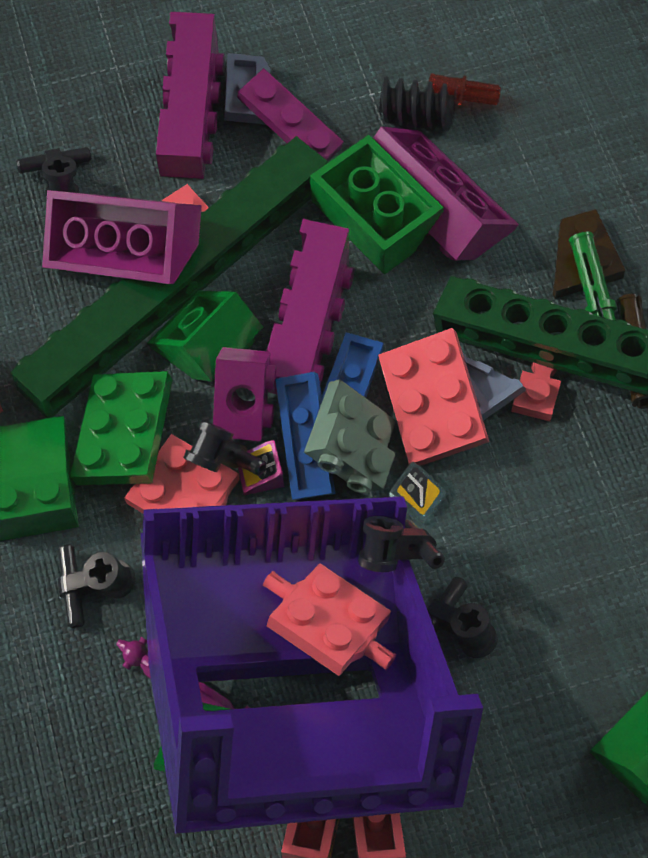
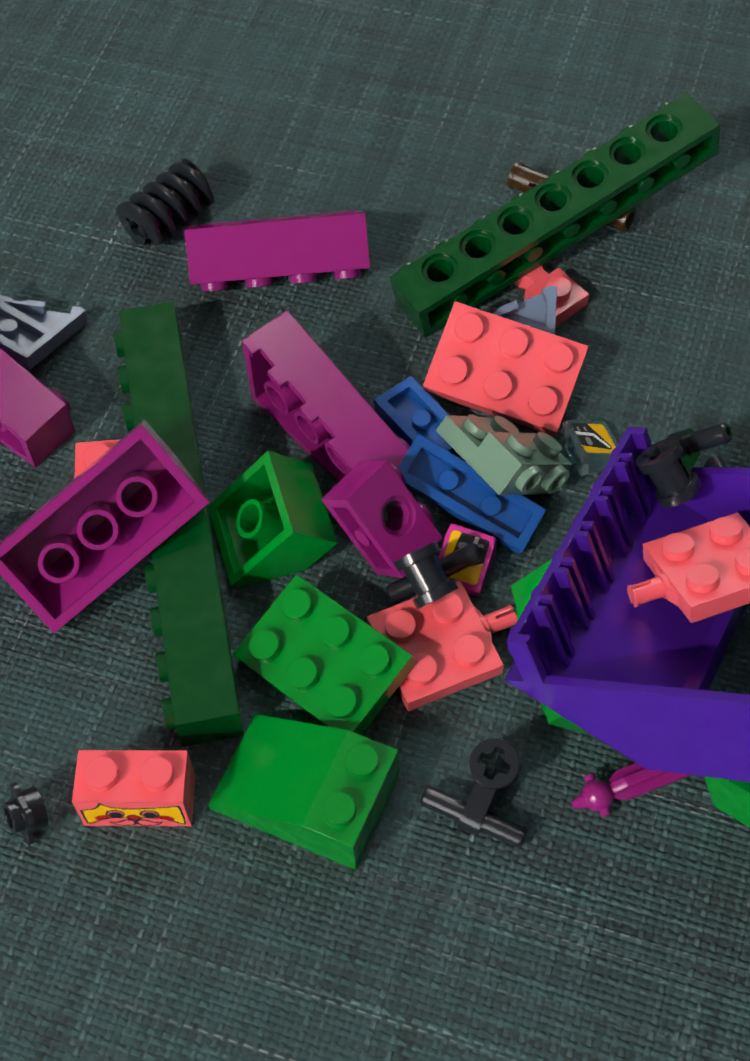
camera: 55 degrees left, 5 degrees down
(287, 114) = (76, 310): magenta plate -> none
(377, 203) = (248, 283): green slope -> none
(468, 90) = (198, 152): clear red axle -> none
(566, 271) = (436, 180): dark brown wing -> none
(583, 249) = (472, 178): green pin -> none

